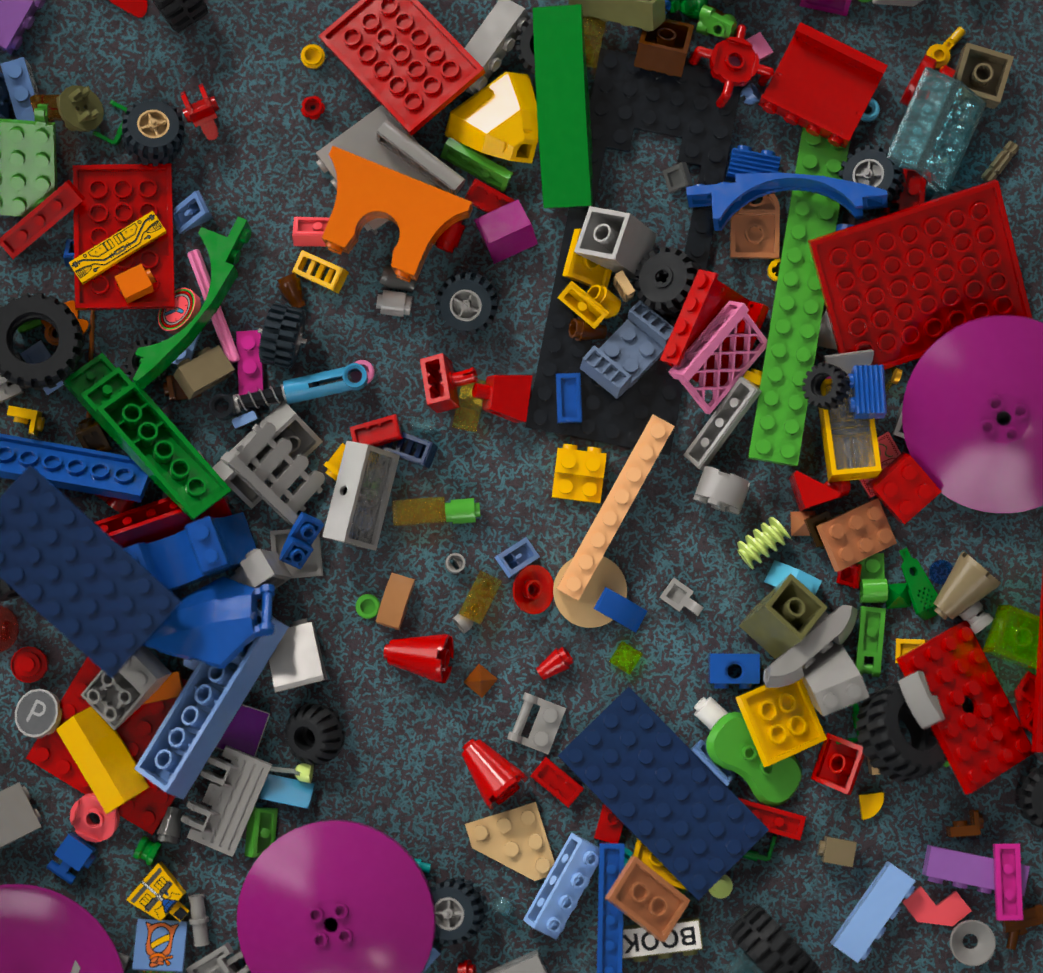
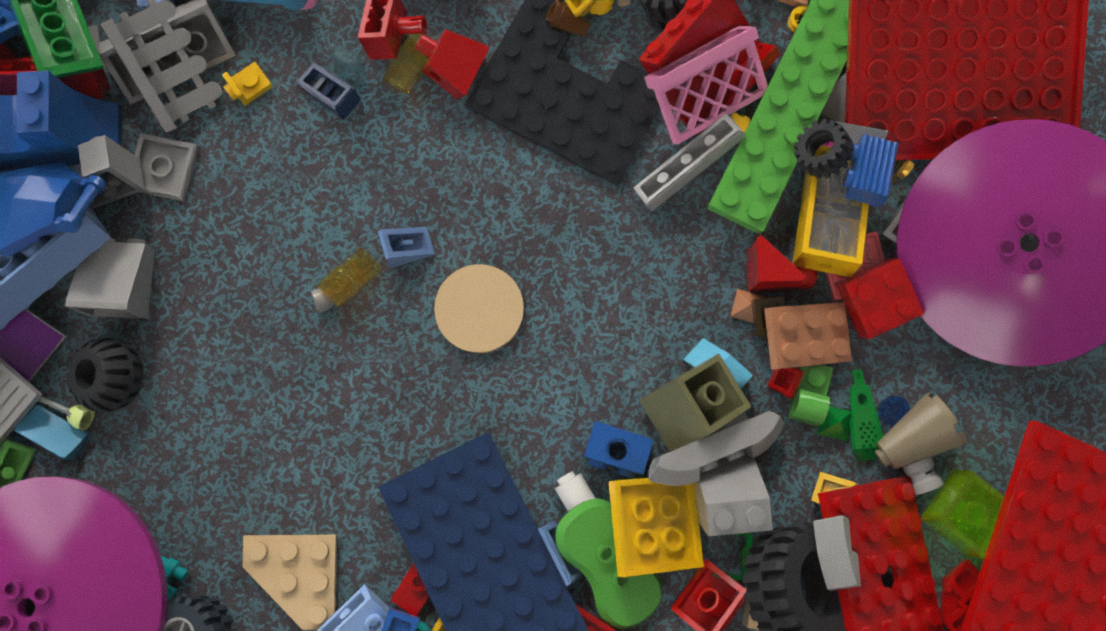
camera: 15 degrees right, 5 degrees down
(299, 540) = (166, 150): blue slope -> none
(361, 495) = (250, 118): light grey brick -> none
(367, 606) = (221, 250): bright green tile -> none
(377, 431) = (295, 61): red plate -> none
(395, 601) = (249, 254): medium nougat slope -> none
(418, 511) = (313, 159): clear yellow slope -> none
(422, 655) = (262, 323): red cone -> none
(458, 560) = (340, 227): light grey hinge -> none
(462, 511) = (362, 174): bright green brick -> none
(480, 680) = (320, 373): dark orange slope -> none
(491, 772) = (293, 484): red cone -> none
(540, 592) = (424, 288): red dish -> none
(544, 726) = (375, 449): light grey plate -> none
(555, 663) = (411, 379): red cone -> none
(557, 782) = (368, 518): red plate -> none
(568, 398) = (522, 84): blue tile -> none
(579, 474) = (508, 173): yellow plate -> none
(615, 507) = (536, 218): light nougat brick -> none
(620, 609) = (506, 339): blue slope -> none
(625, 657) = (495, 397): clear neon green plate -> none
(628, 351) = (603, 54): sand blue plate -> none
(678, 596) = (580, 345): light grey plate -> none
(721, 490) = (666, 236): light grey brick -> none
(762, 542) = (695, 310): yellowish green piece -> none
(870, 639) = (789, 463): bright green plate -> none

